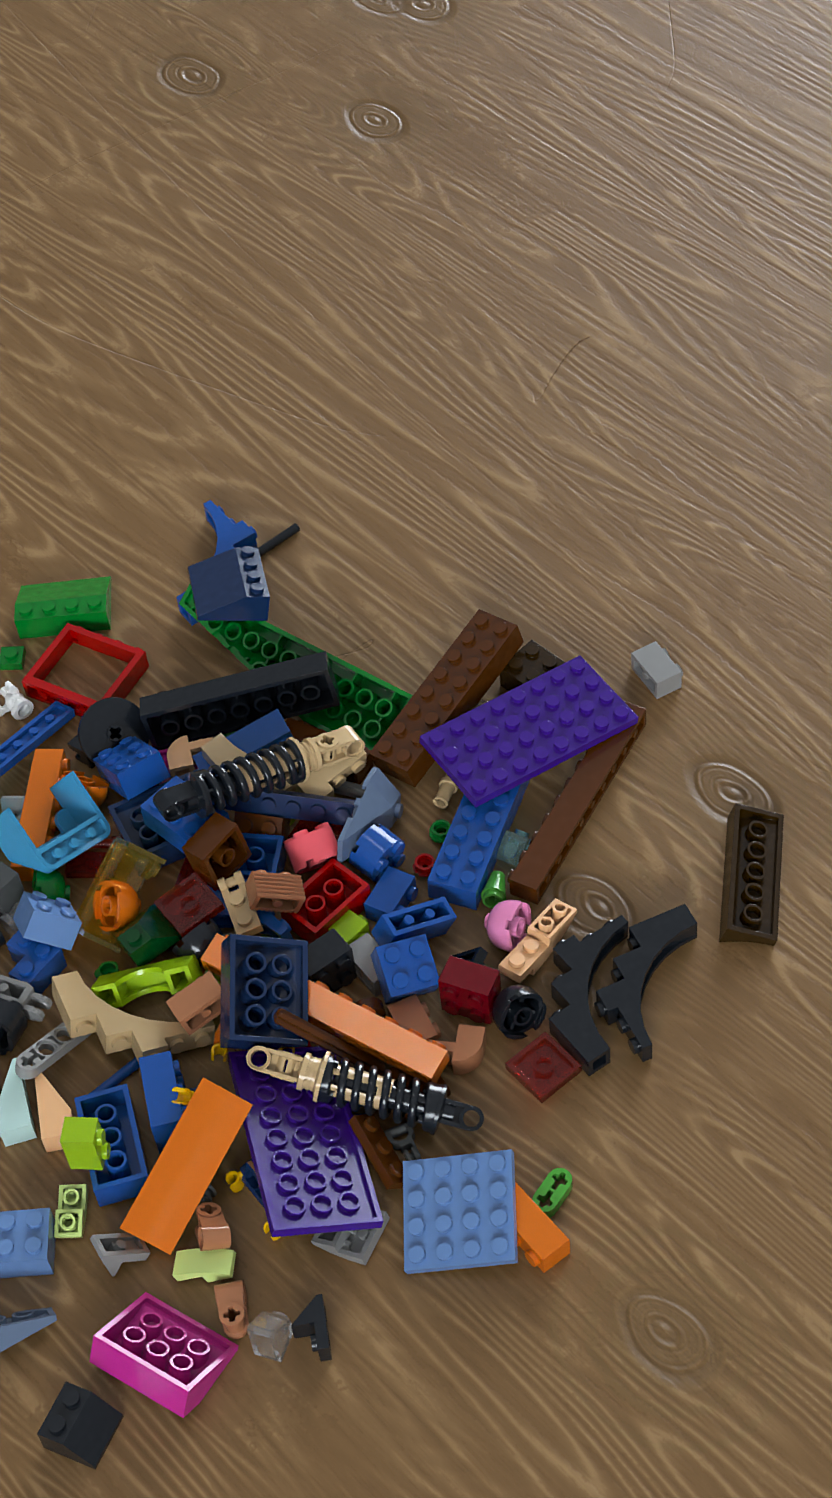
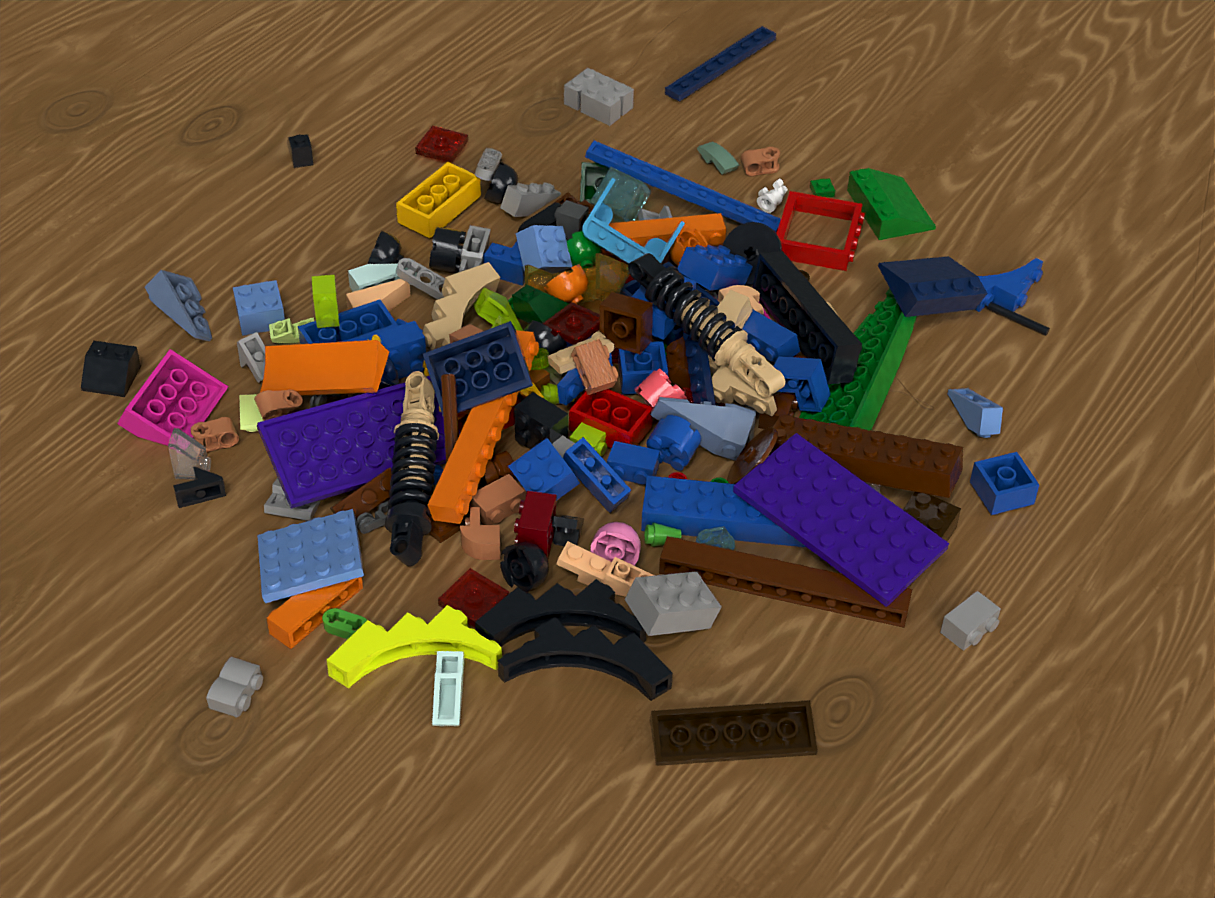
camera: 70 degrees right, 5 degrees down
(331, 715) = (806, 380): none -> blue brick
(395, 603) = (977, 412): none -> medium blue slope
(439, 782) = (753, 454): none -> reddish brown piece
(502, 598) = (1004, 483): none -> blue brick
(591, 1164) = (409, 637): none -> neon yellow arch
(600, 887) = (672, 603): none -> light grey brick
(622, 1304) = (234, 687): none -> light grey brick
(659, 1103) = (448, 688): none -> light aqua slope

